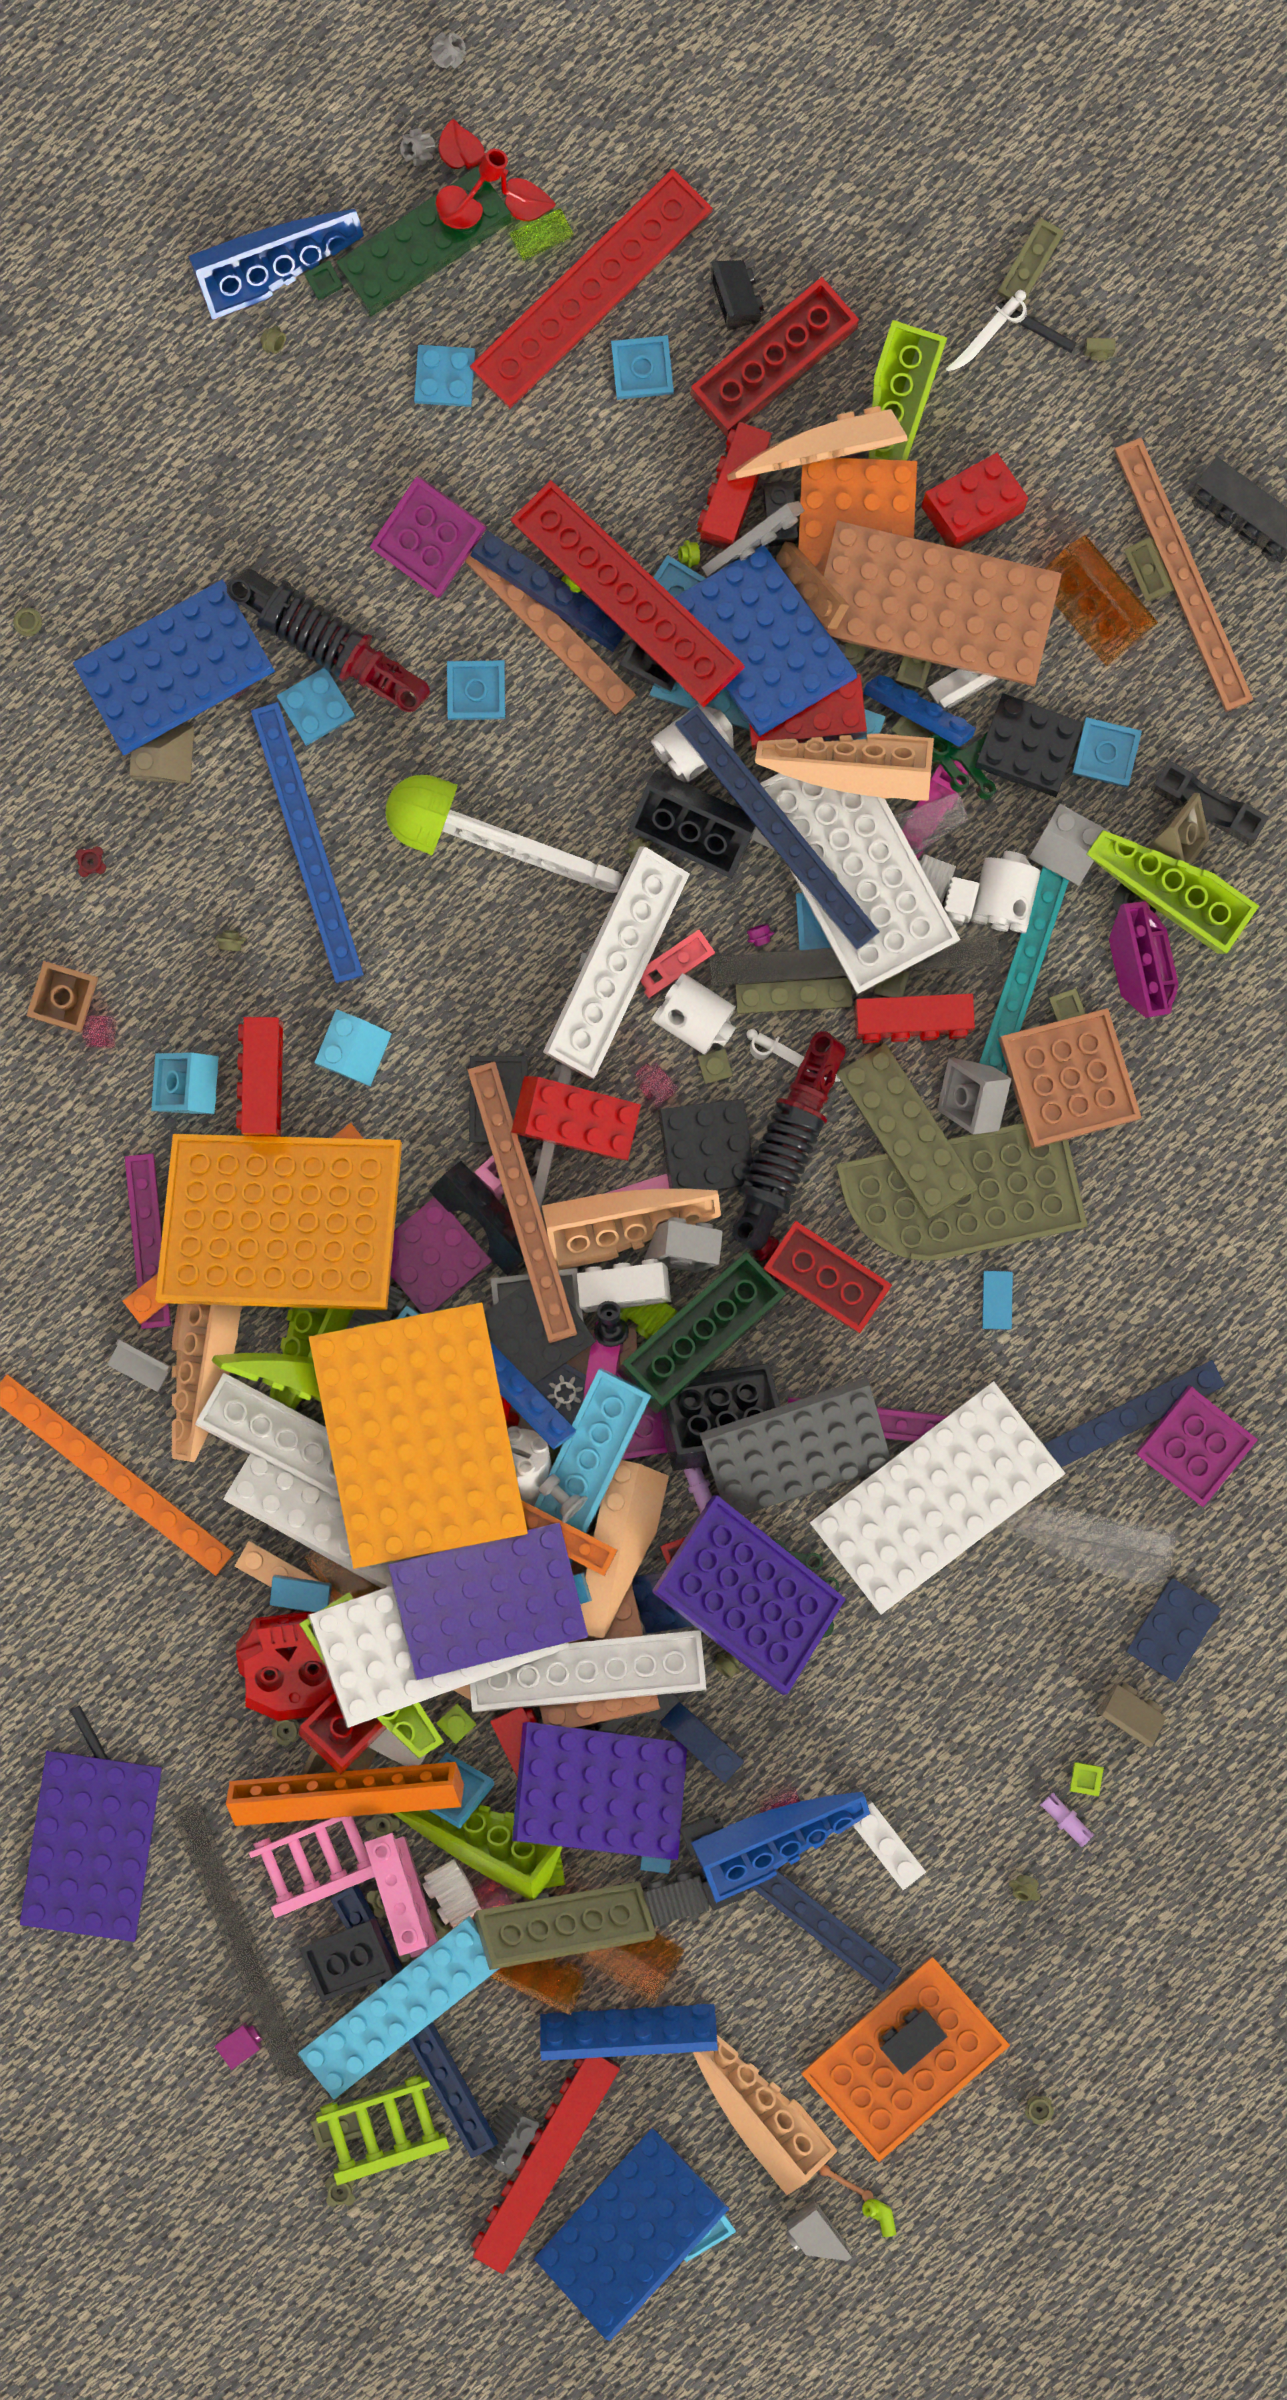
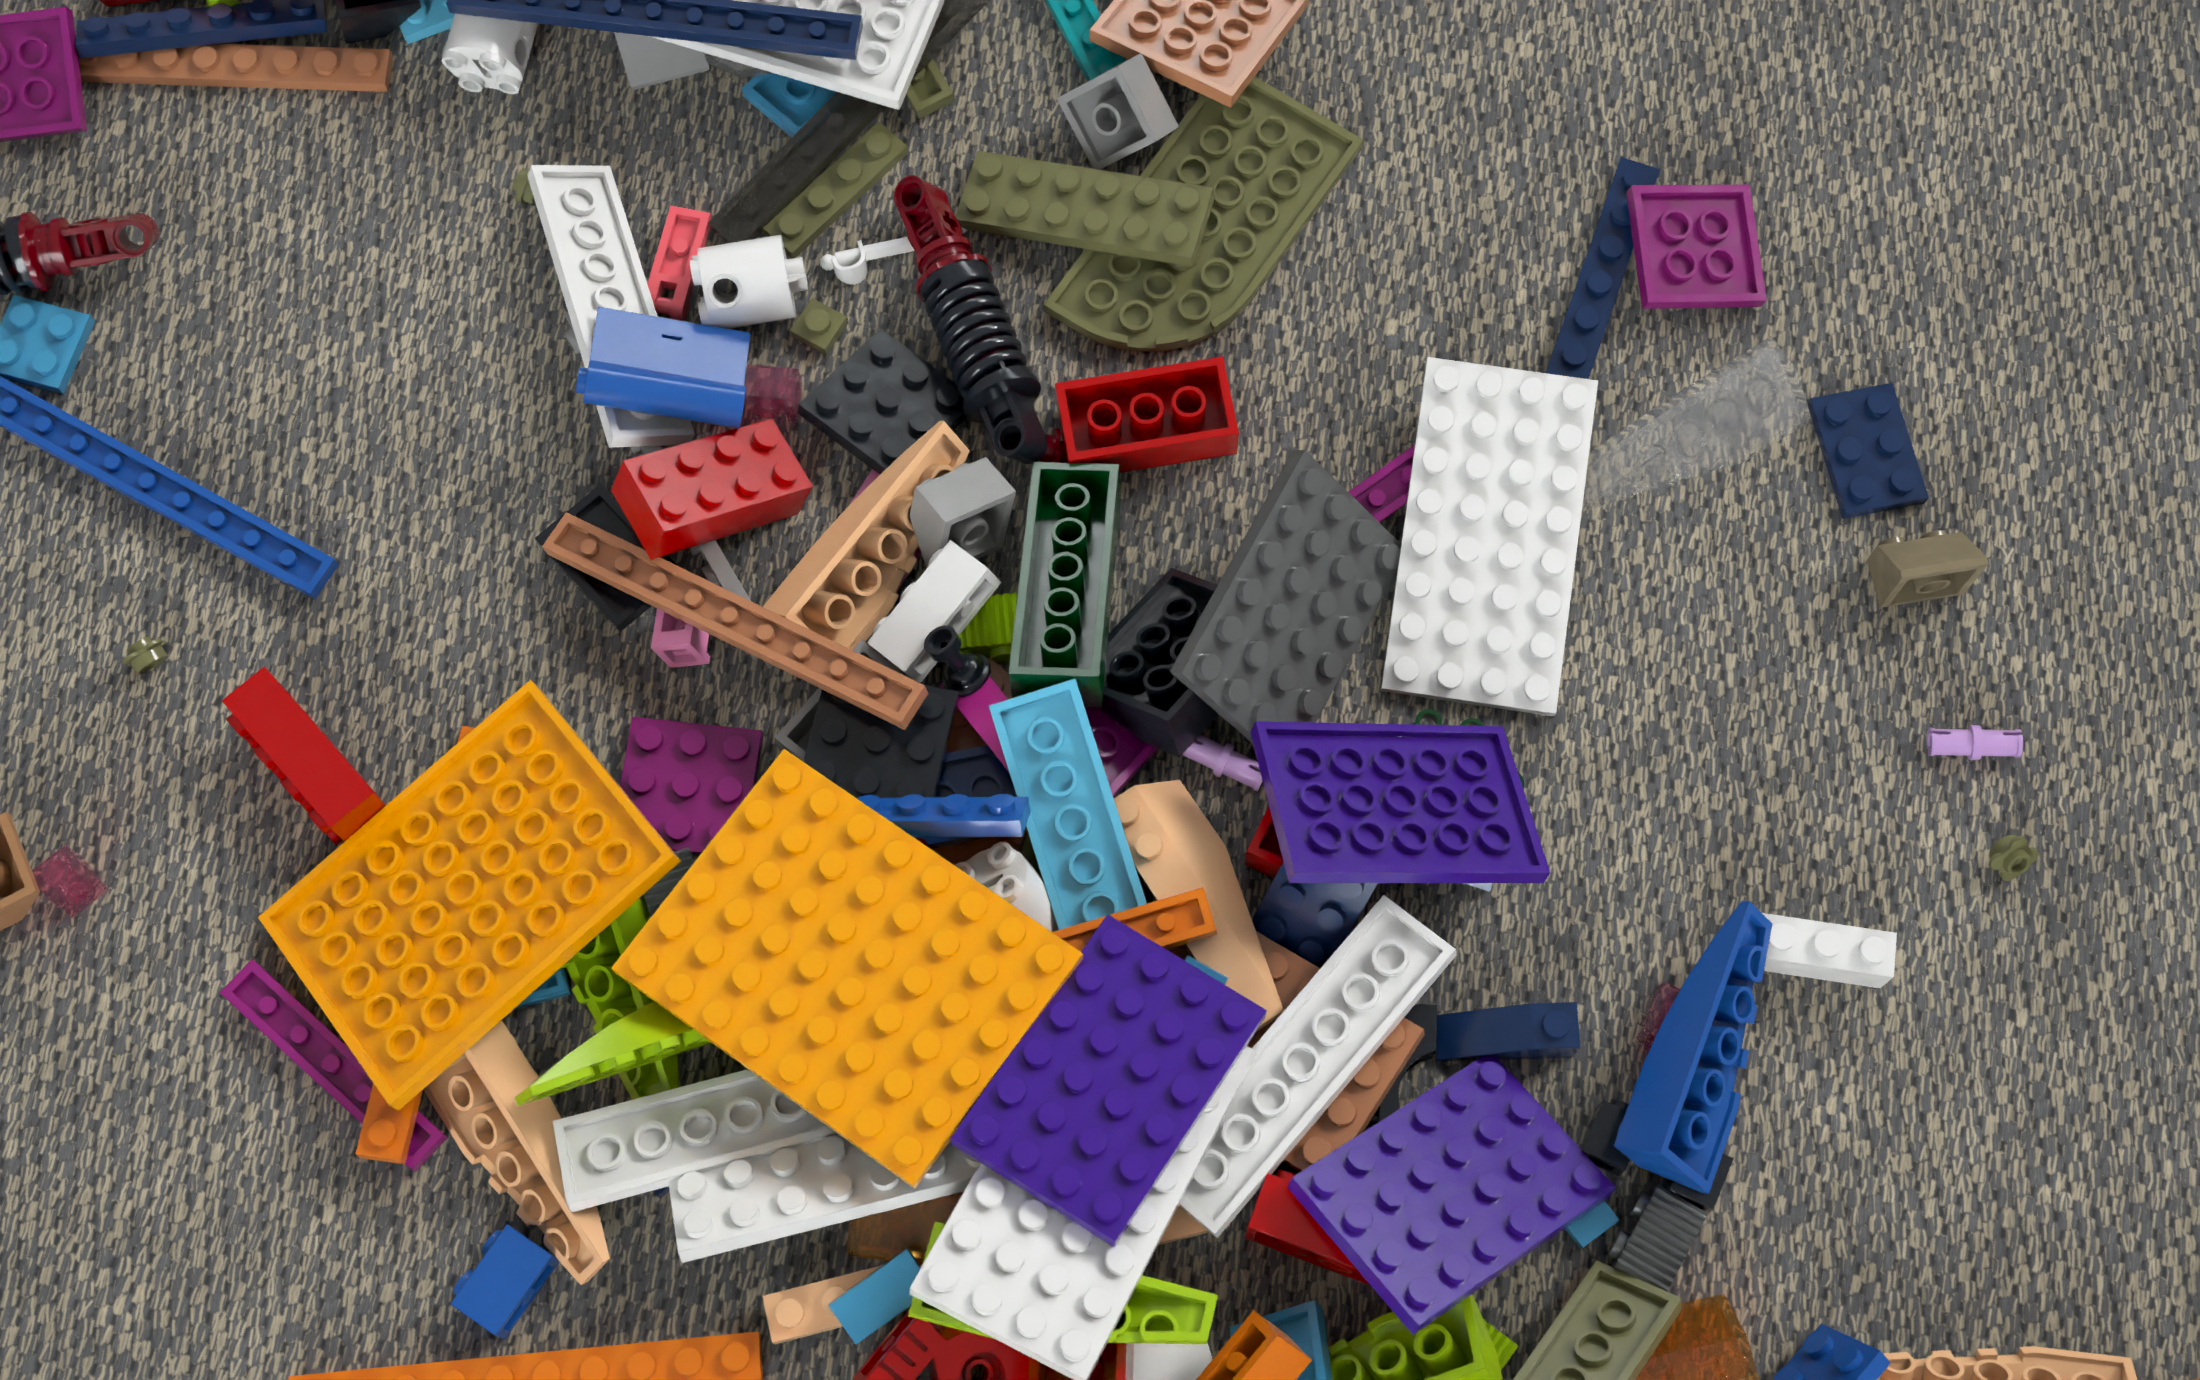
camera: 45 degrees left, 15 degrees down
(139, 1365) = (446, 1214): light grey panel -> none
(139, 1421) = (503, 1281): none -> blue brick
(185, 1083) = (224, 849): medium azure slope -> none
(353, 1048) = (390, 645): medium azure slope -> none
(421, 810) = (249, 334): piece -> none
(456, 1723) = (1212, 1277): lime plate -> none
(466, 1193) = (653, 679): black arch -> none
(476, 690) = (207, 183): dark azure plate -> none
(570, 1505) = (1100, 886): light grey piece -> none
(572, 1397) = (974, 767): light grey gear -> none
(609, 1033) = (666, 368): none -> door
(693, 824) = (564, 104): black brick -> none
(727, 1665) = (1448, 922): olive plate -> none
(759, 934) = (742, 160): magenta plate -> none
(829, 1930) = (1859, 1109): dark blue plate -> none
(869, 2089) = (2090, 1176): orange plate -> none
(912, 2039) = (2080, 1136): black piece -> none
(914, 1016) = (981, 91): red brick -> none
(997, 1300) = (1345, 294): dark azure tile -> none
(1086, 1779) = (1947, 680): lime plate -> none

